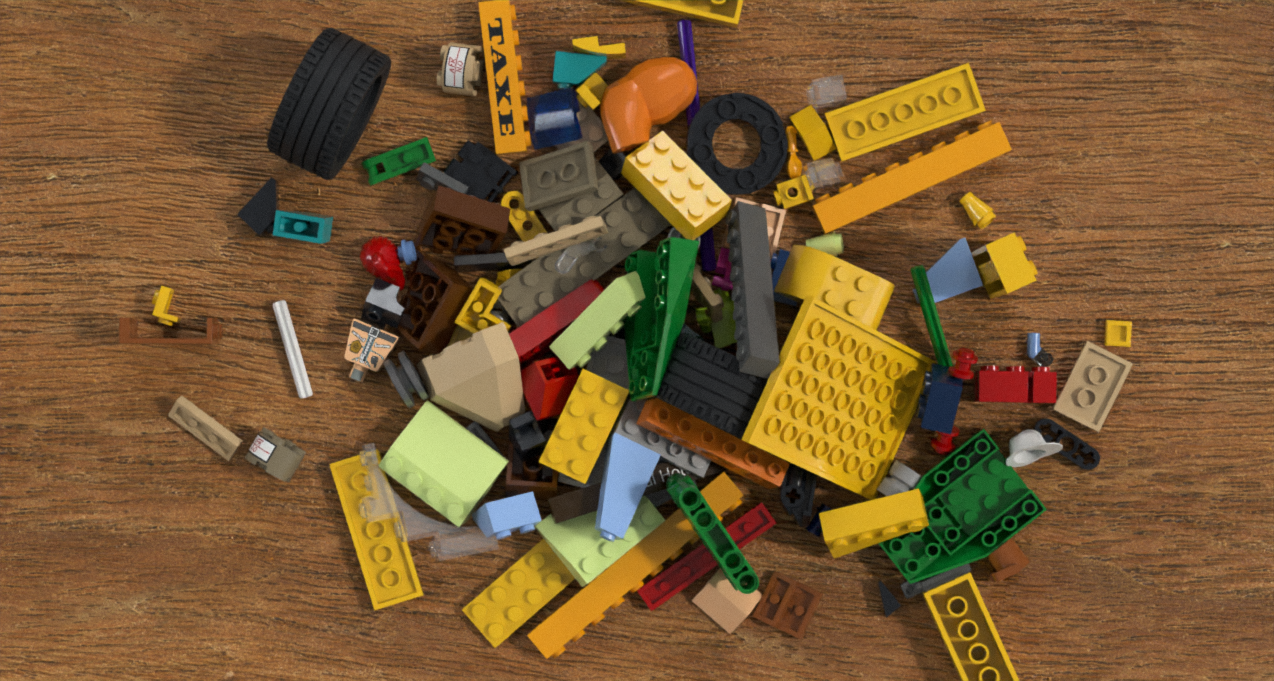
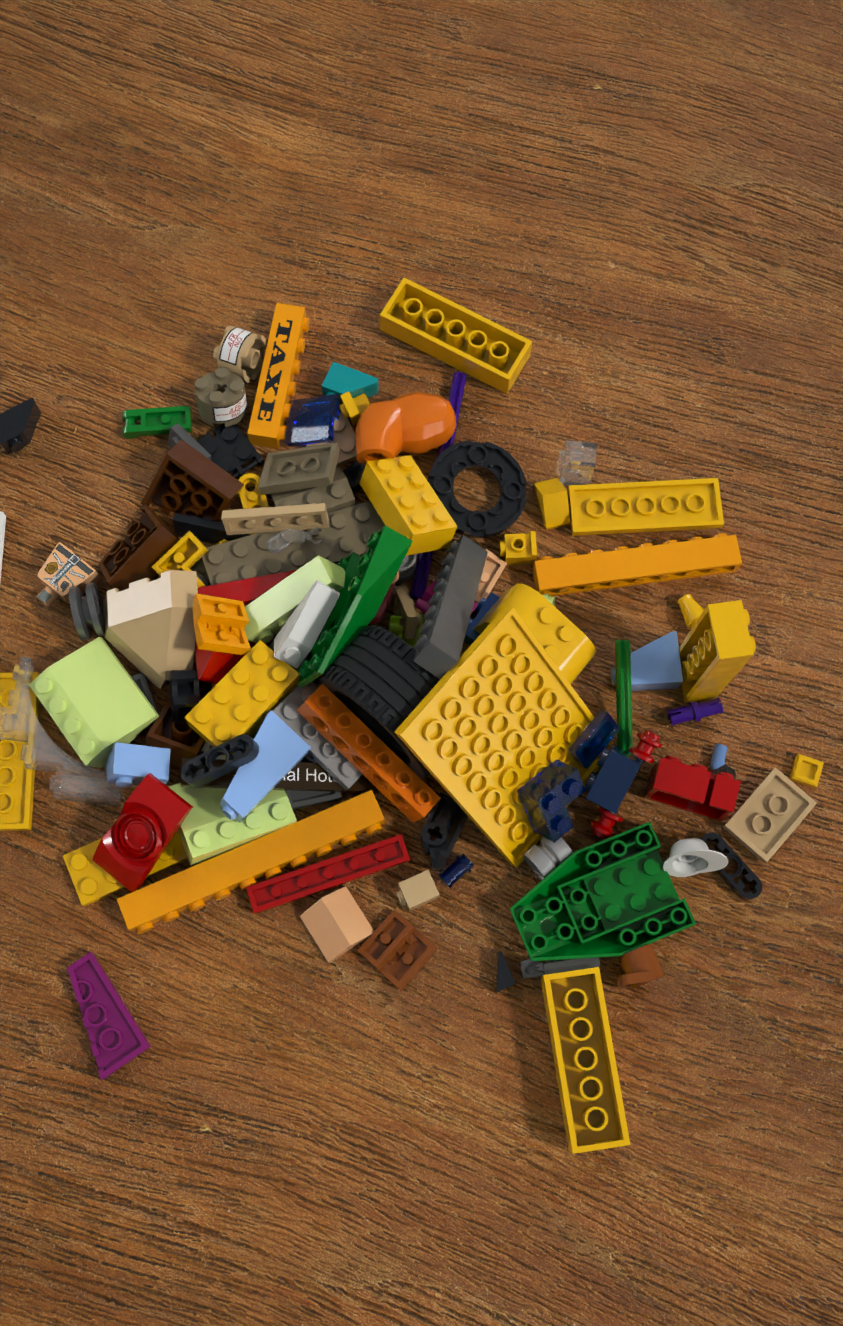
camera: 10 degrees right, 15 degrees down
(303, 226) = (45, 448): teal slope -> none
(328, 103) = (101, 331): black tyre -> none
(382, 260) = (109, 503): red hair -> none
(382, 306) = (92, 539): black brick -> none
(407, 251) = (134, 499): medium blue plate -> none
(457, 122) = (221, 397): none -> dark tan brick
(532, 573) = (141, 832): none -> red slope
(543, 367) = (220, 624): none -> light orange slope
(591, 46) = (387, 371): yellow slope -> none
(595, 476) = (208, 758): none -> black beam
(621, 346) = (305, 624): none -> white slope
(712, 533) = (339, 842): green connector -> none
(791, 549) = (417, 891): none -> tan brick
(794, 165) = (526, 524): light orange piece -> none
(822, 174) = (551, 533): clear slope -> none
(873, 522) = (509, 882): yellow wedge -> none
(886, 436) = (547, 798): none -> brick
(914, 369) = (594, 739): none -> clear blue plate
(1001, 307) = (695, 711): none -> dark purple pin

